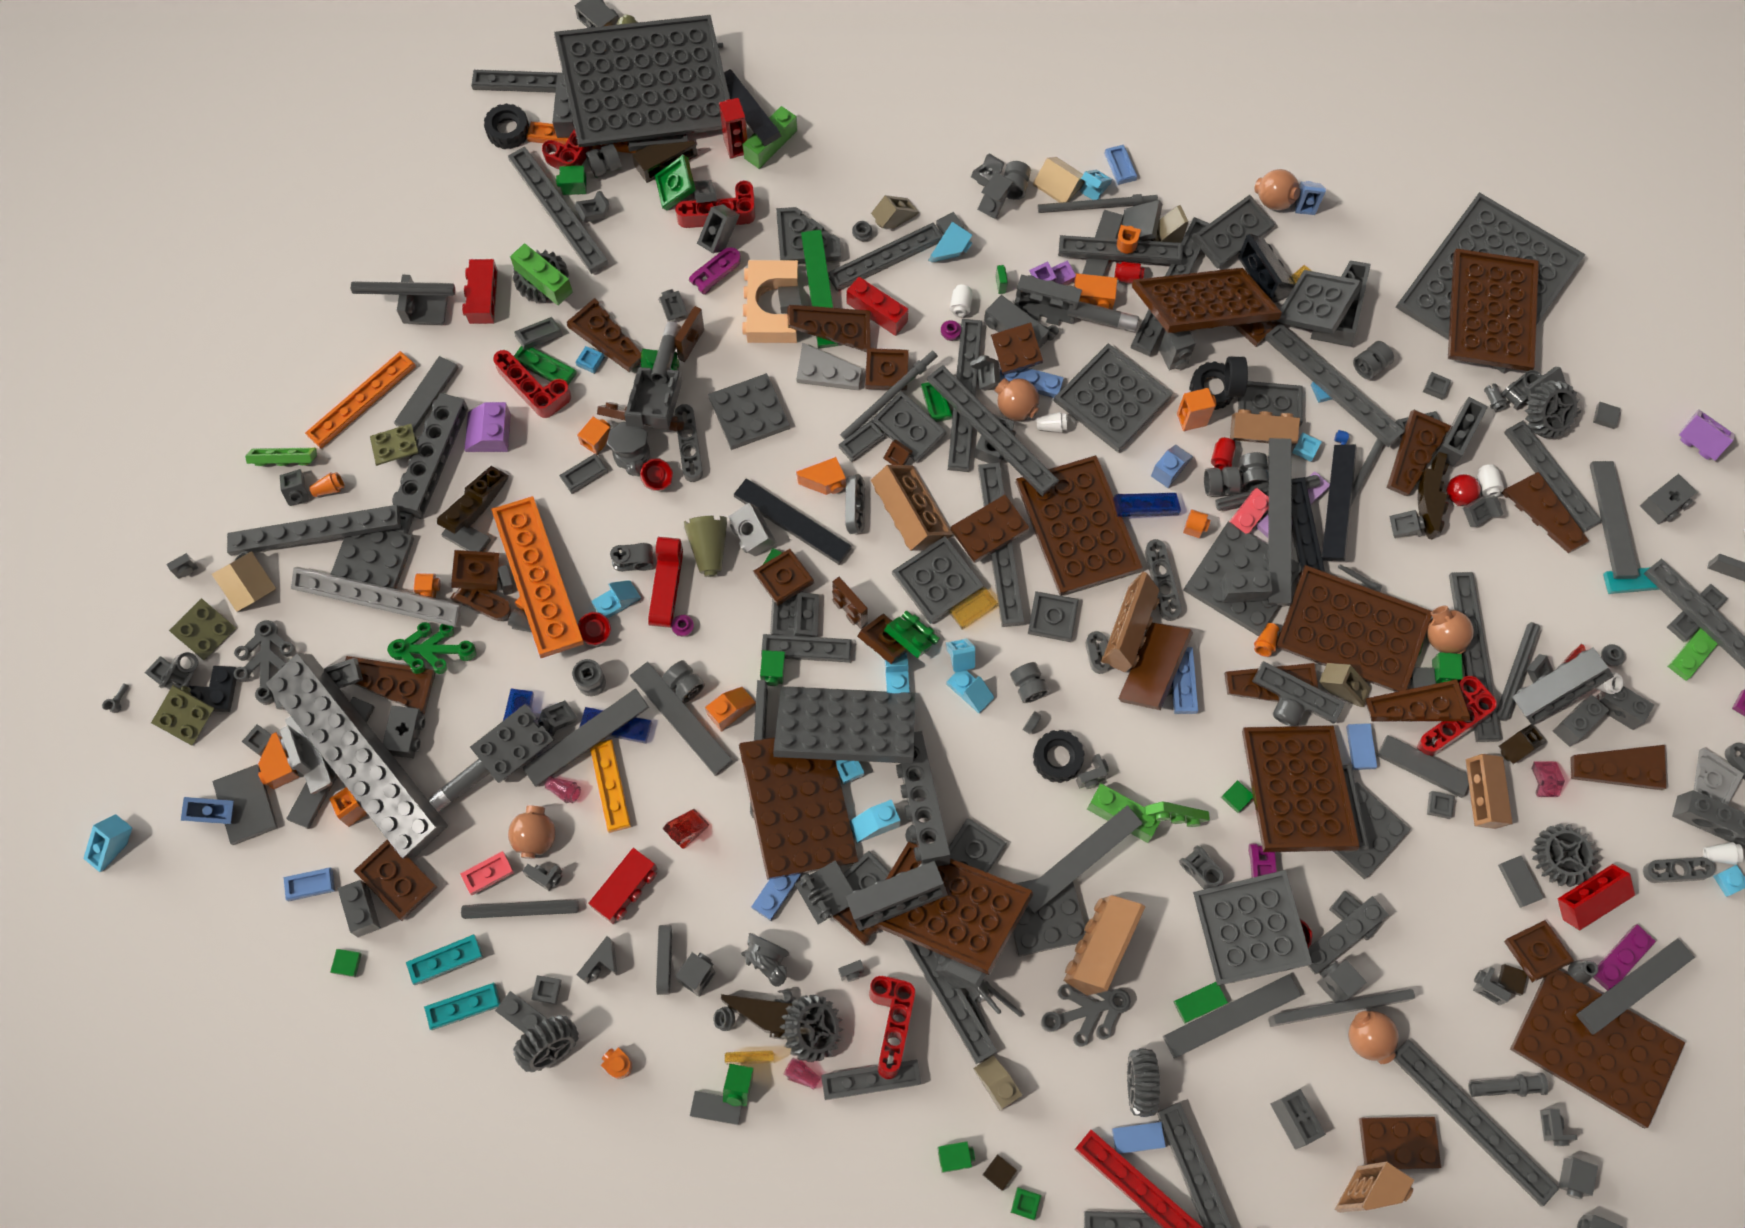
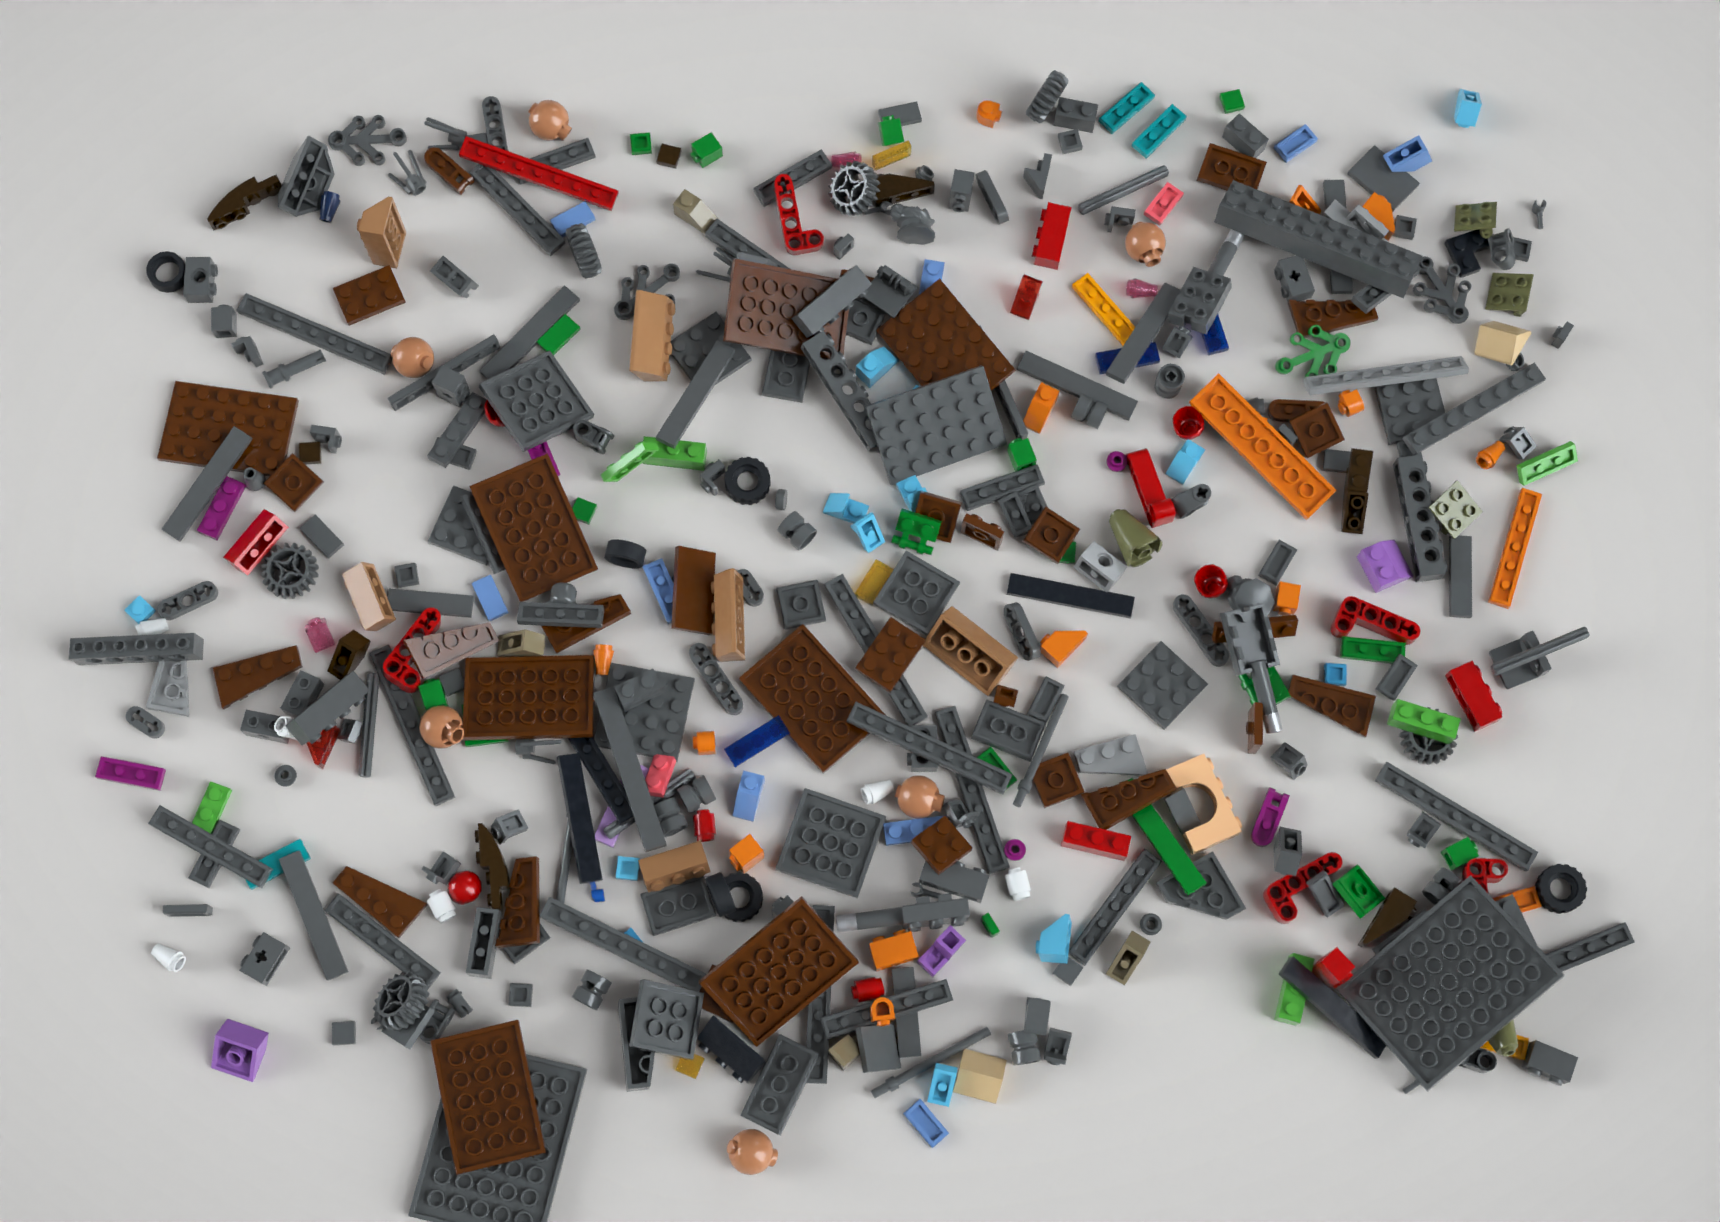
camera: 155 degrees right, 5 degrees up
(1212, 726) = (625, 553): none -> black tyre
(1310, 197) = (717, 1161): medium blue slope -> none

